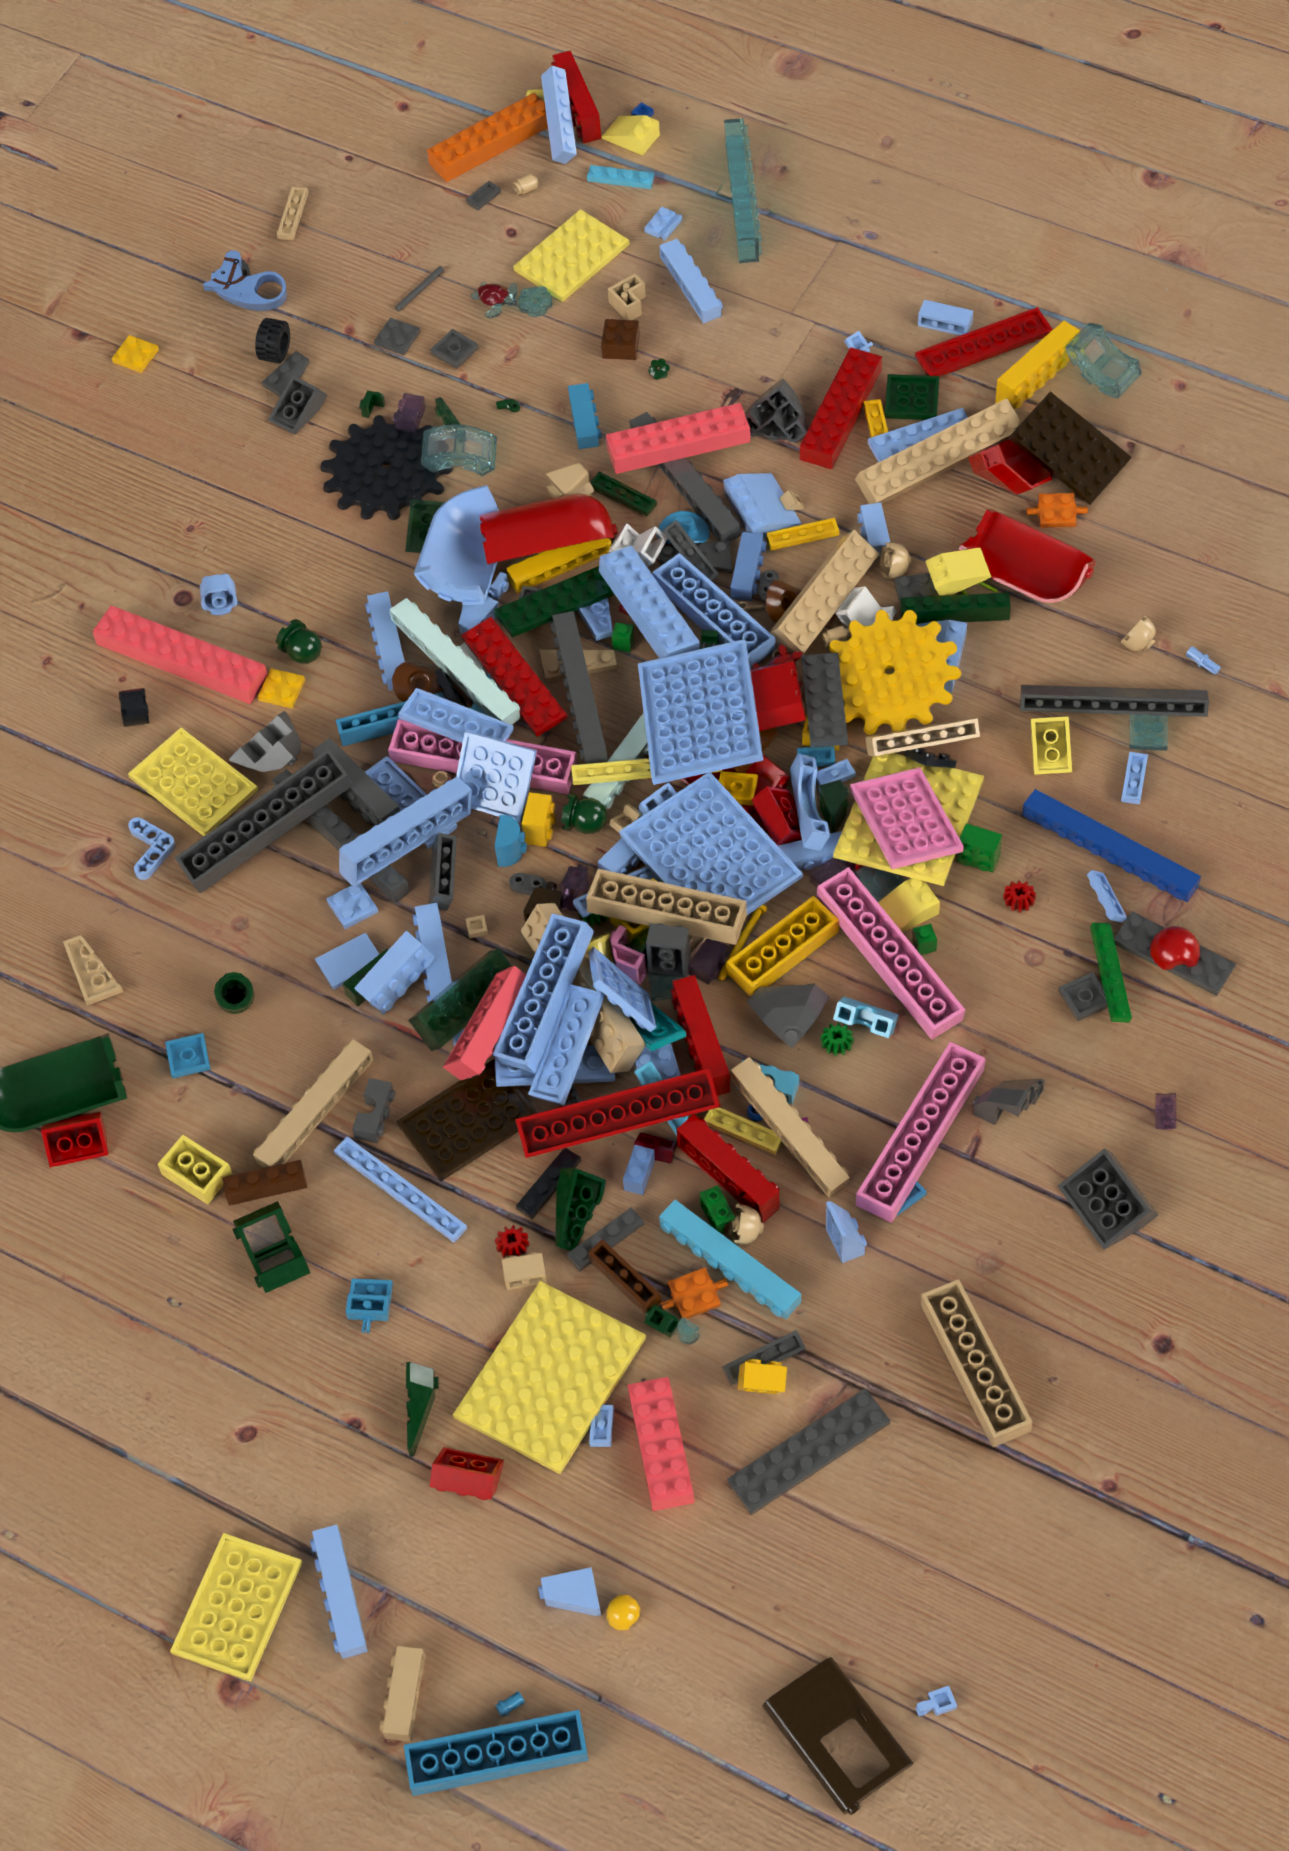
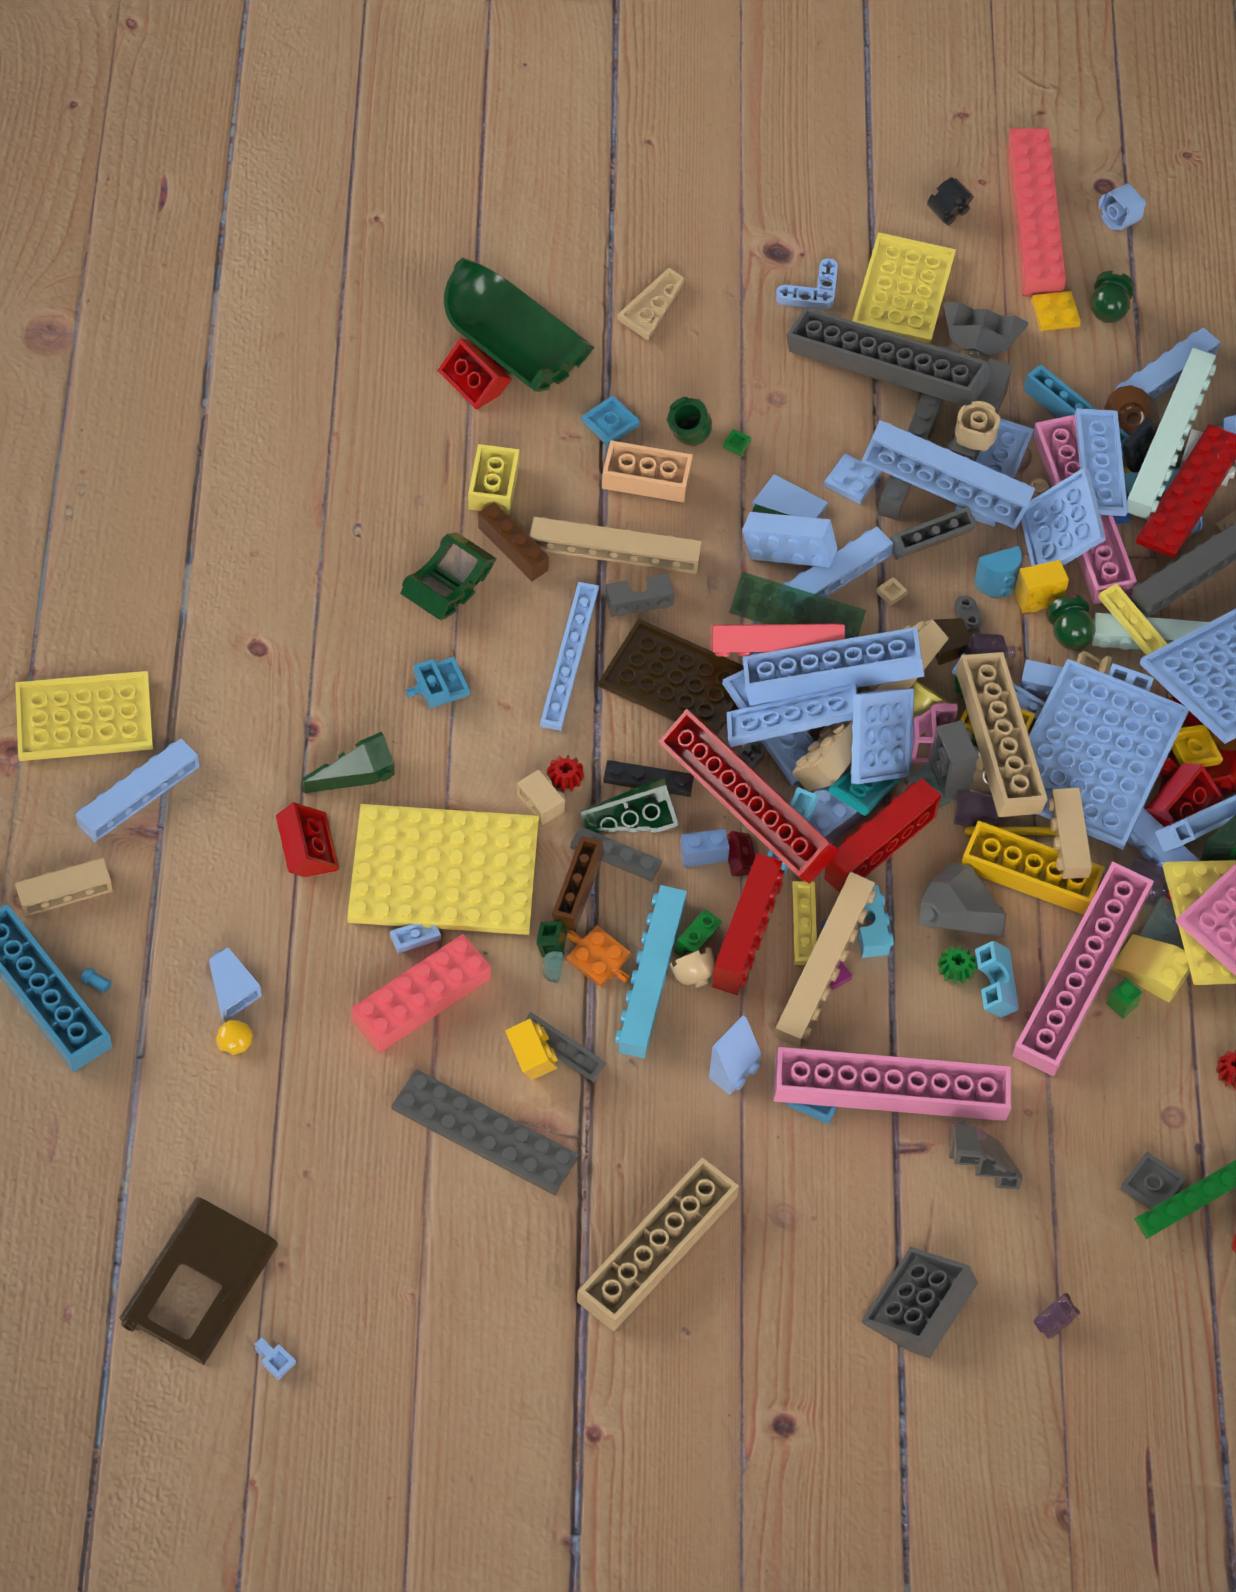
camera: 55 degrees right, 0 degrees up
(258, 1049) = (647, 471): none -> light nougat brick
(267, 971) = (736, 442): none -> green plate
(378, 786) = (977, 426): none -> tan brick
(777, 902) = (1070, 833): none -> tan brick

